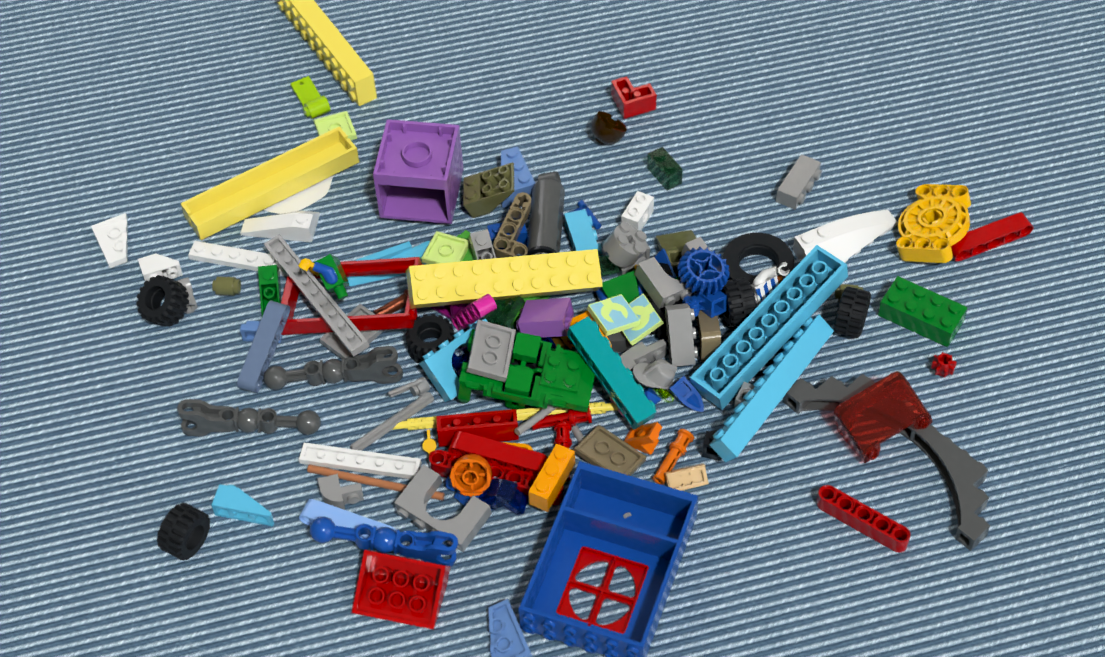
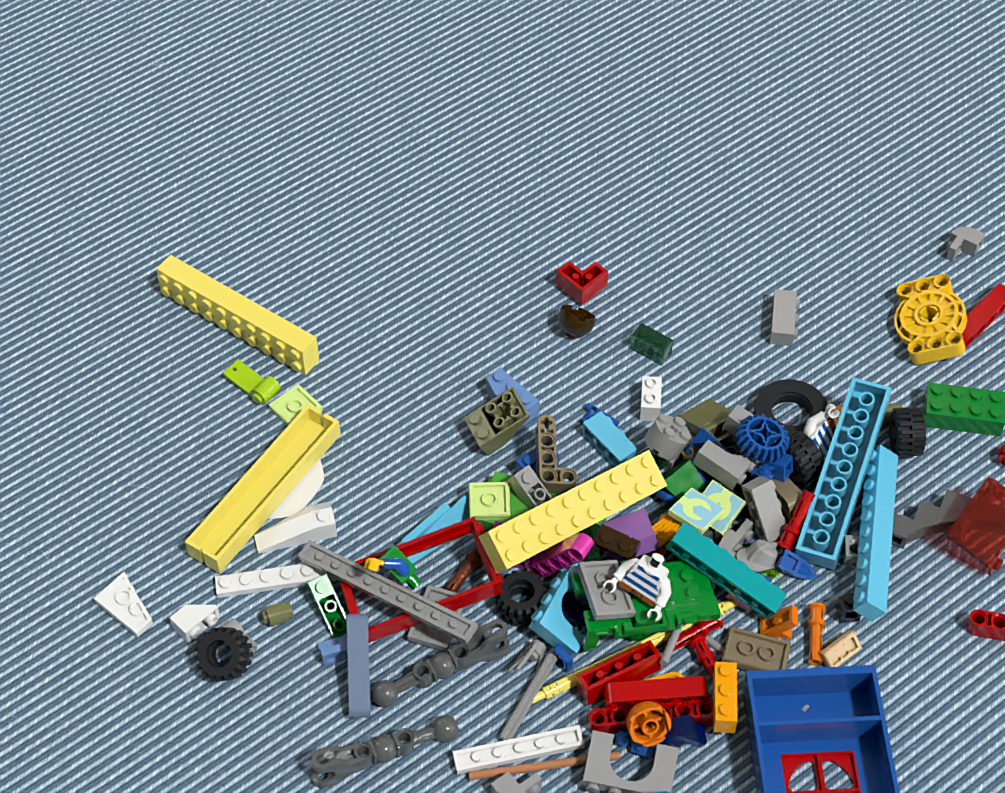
camera: 25 degrees left, 0 degrees up
(418, 171) = (425, 426): medium lavender piece -> none
(429, 444) = (578, 707): yellow piece -> none
(438, 401) = (564, 660): none -> blue tile
(524, 316) = (617, 542): none -> dark brown brick
(525, 352) = (645, 580): none -> torso
(546, 215) = (571, 441): dark grey piece -> none
(702, 355) = (792, 530): none -> red pin
(845, 235) = (852, 360): white wedge -> none
(1011, 165) = (965, 240): none -> light grey brick

